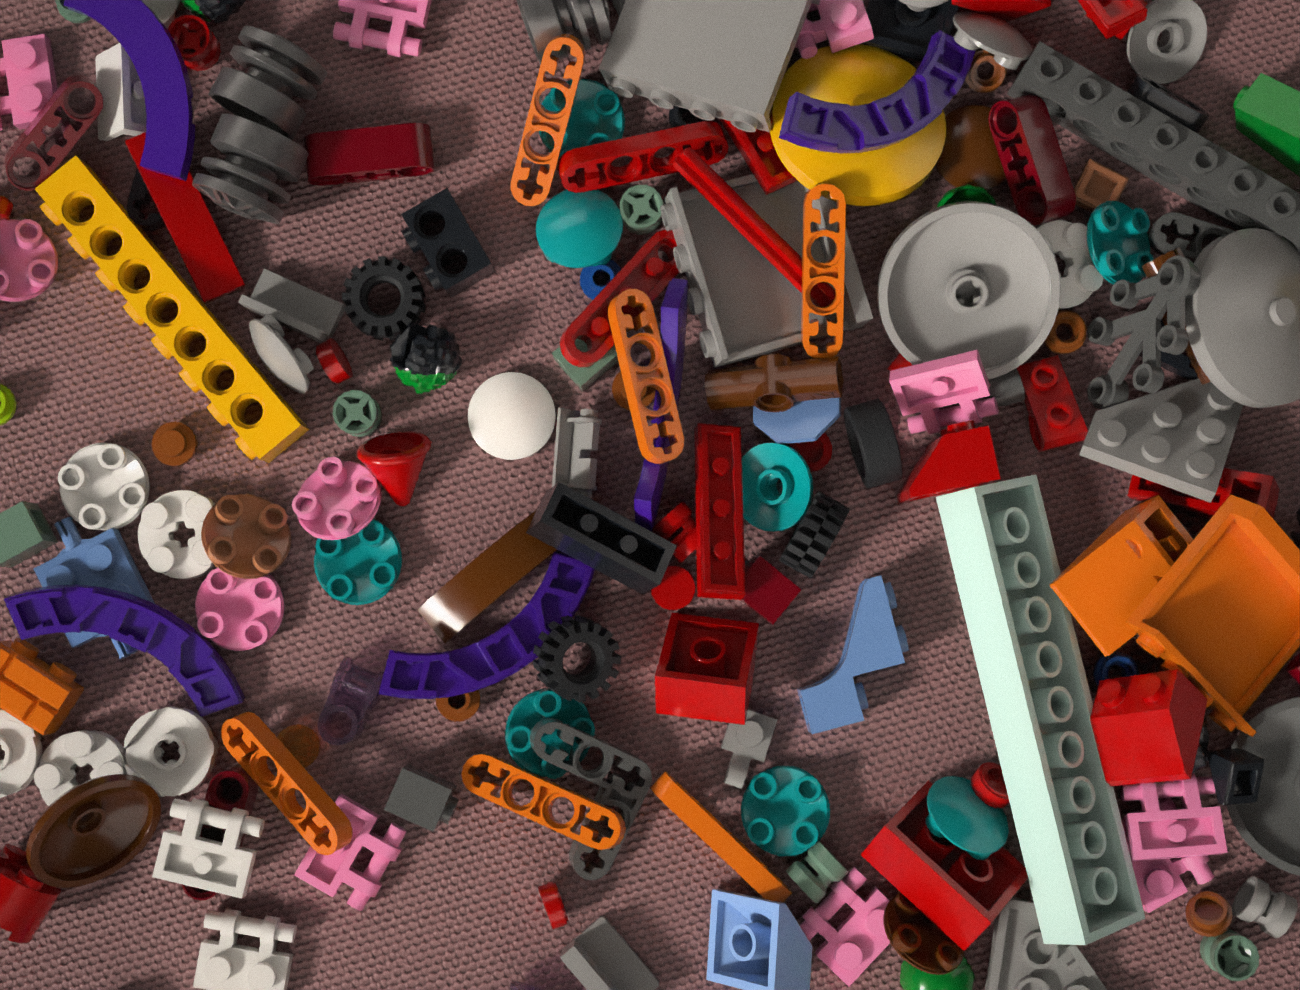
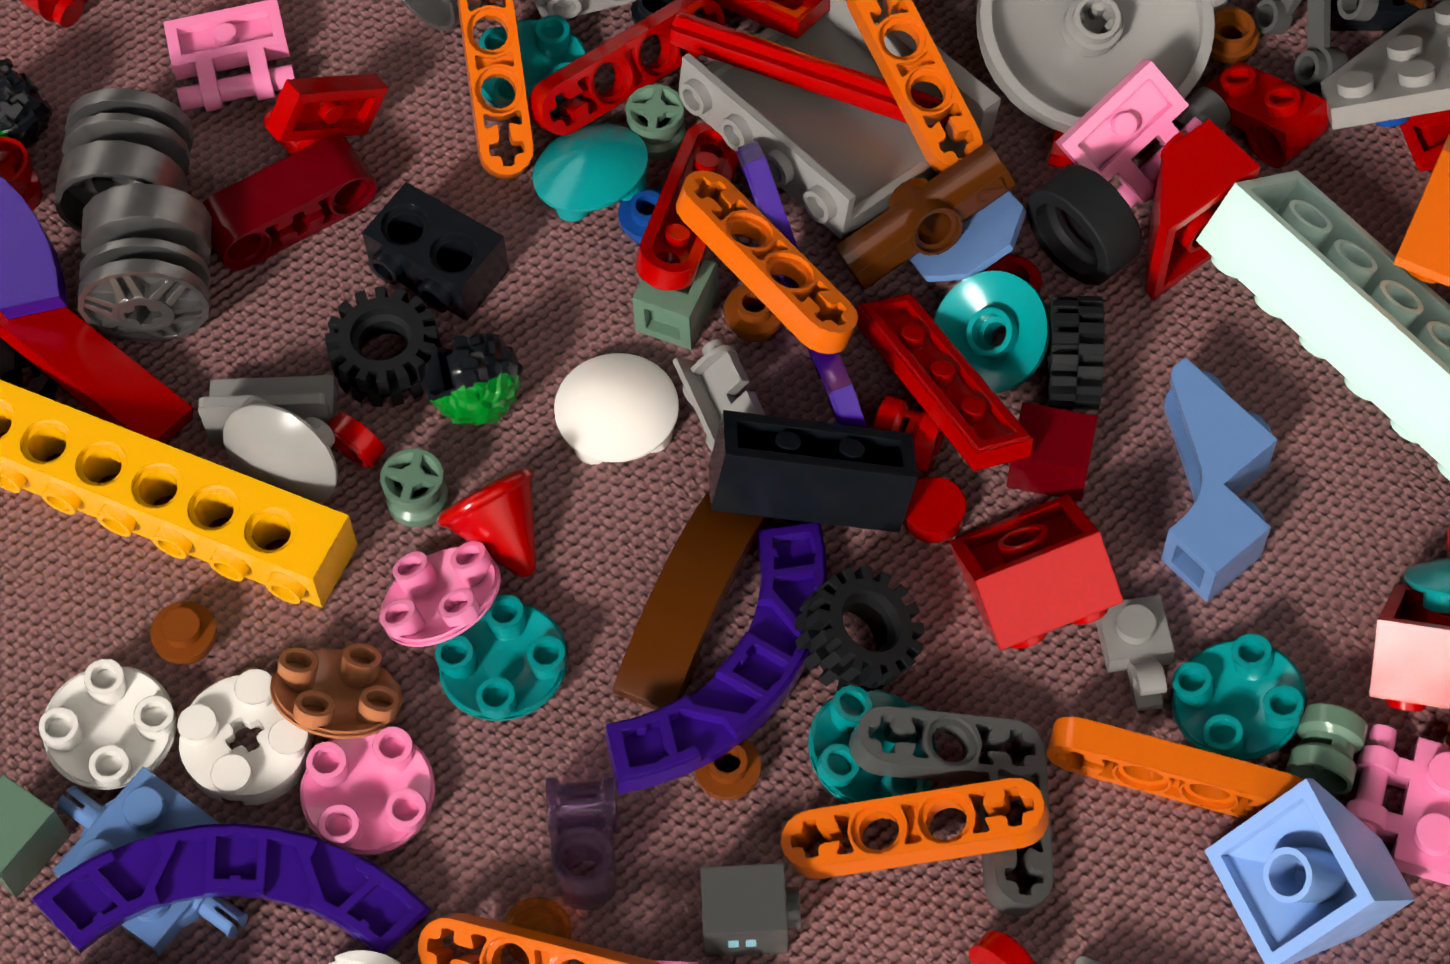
camera: 25 degrees left, 25 degrees down
(409, 100) = (324, 108): none -> red plate

